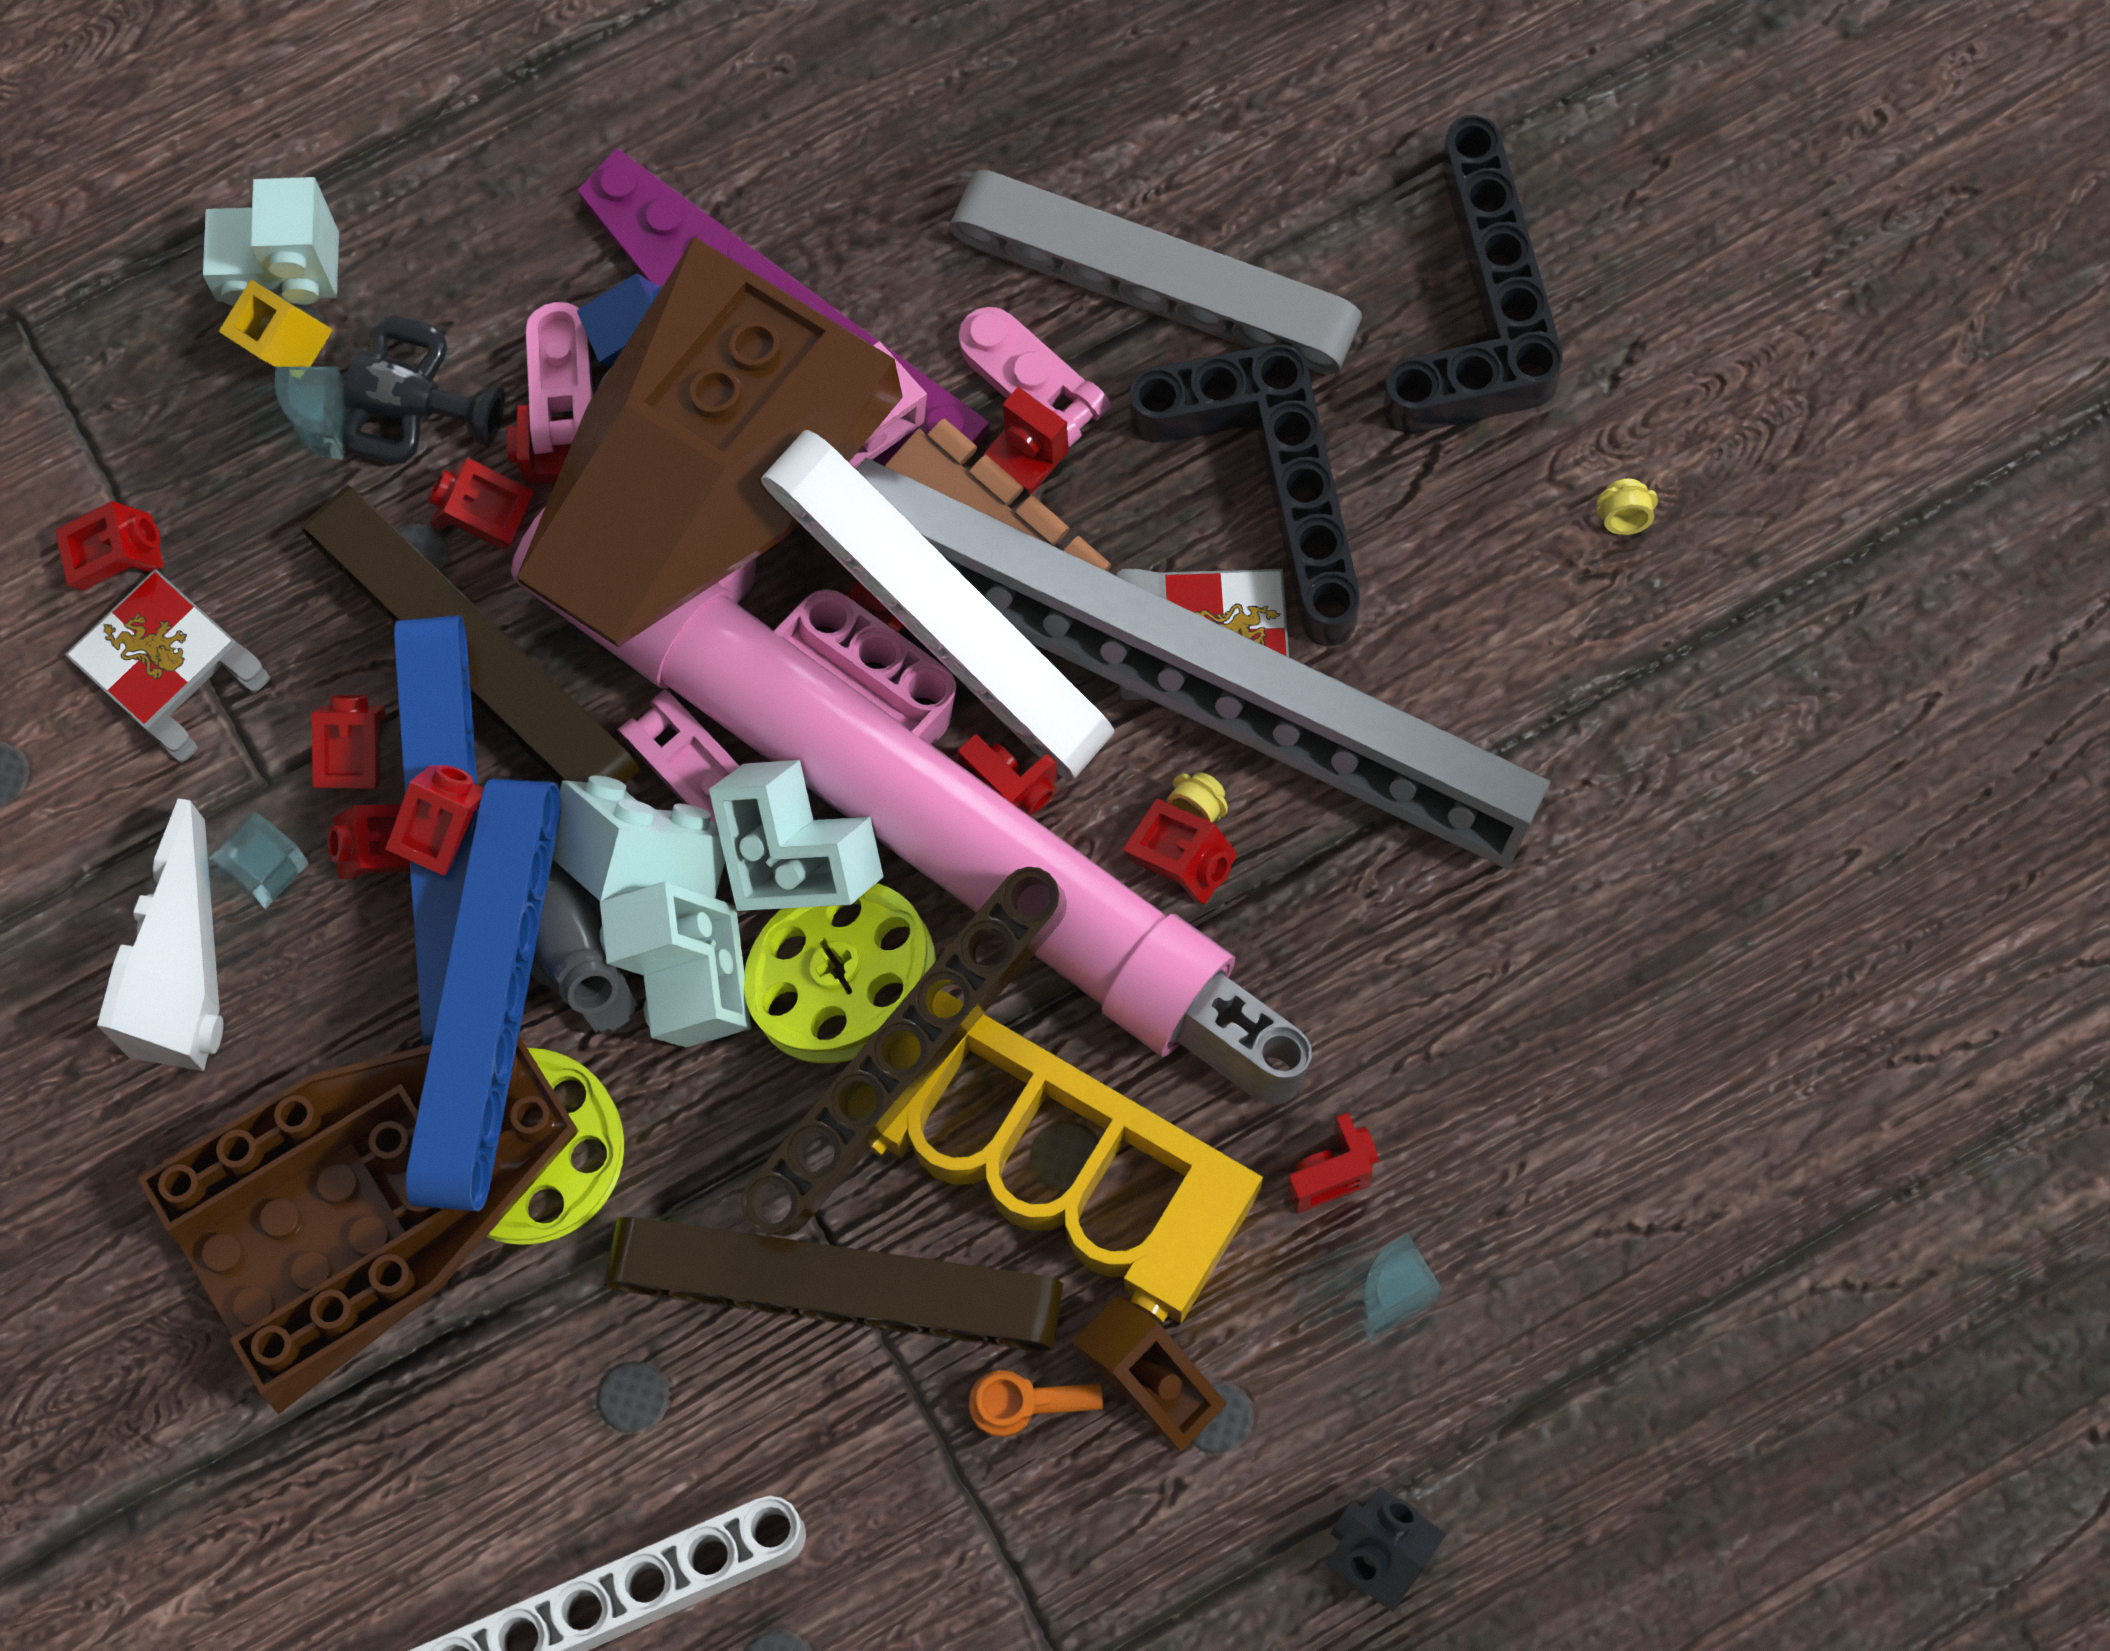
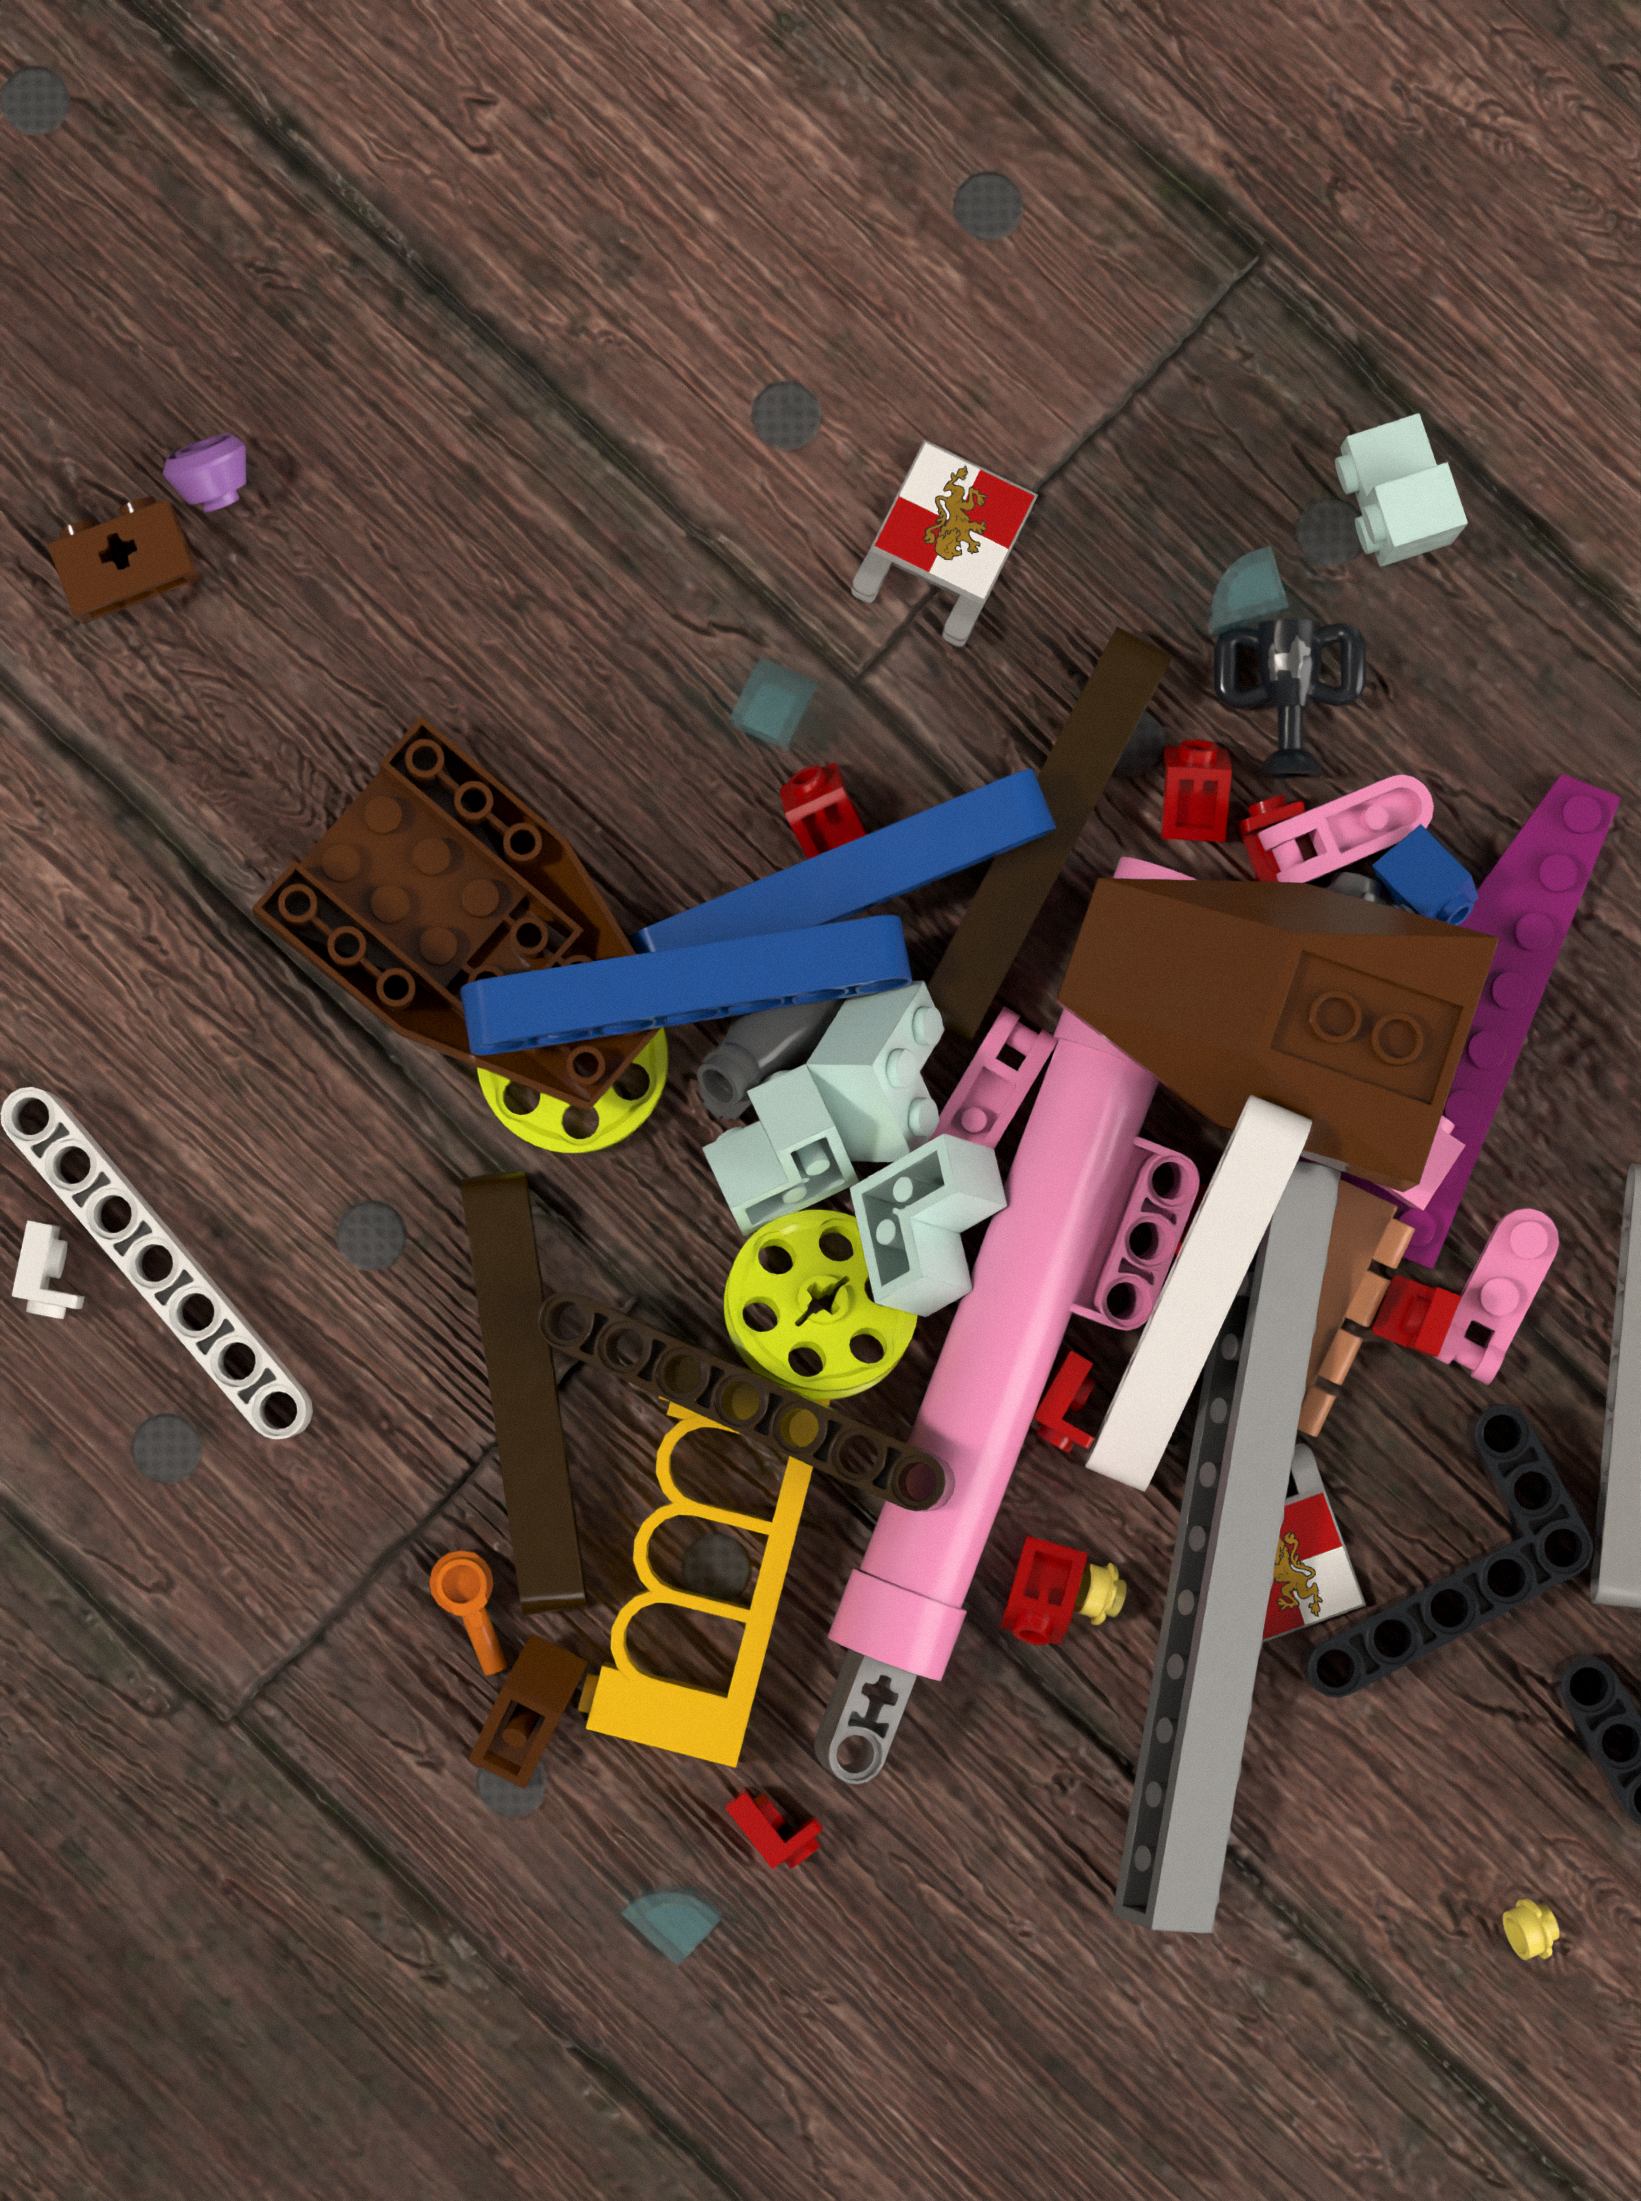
camera: 70 degrees right, 15 degrees up
(107, 544) = (1044, 443): red bracket -> none
(165, 986) = (612, 673): white wedge -> none
(274, 328) = (1312, 529): yellow brick -> none
(346, 743) = (913, 750): red bracket -> none
(435, 817) = (842, 880): red bracket -> none
(1383, 1547) = (427, 1976): black brick -> none

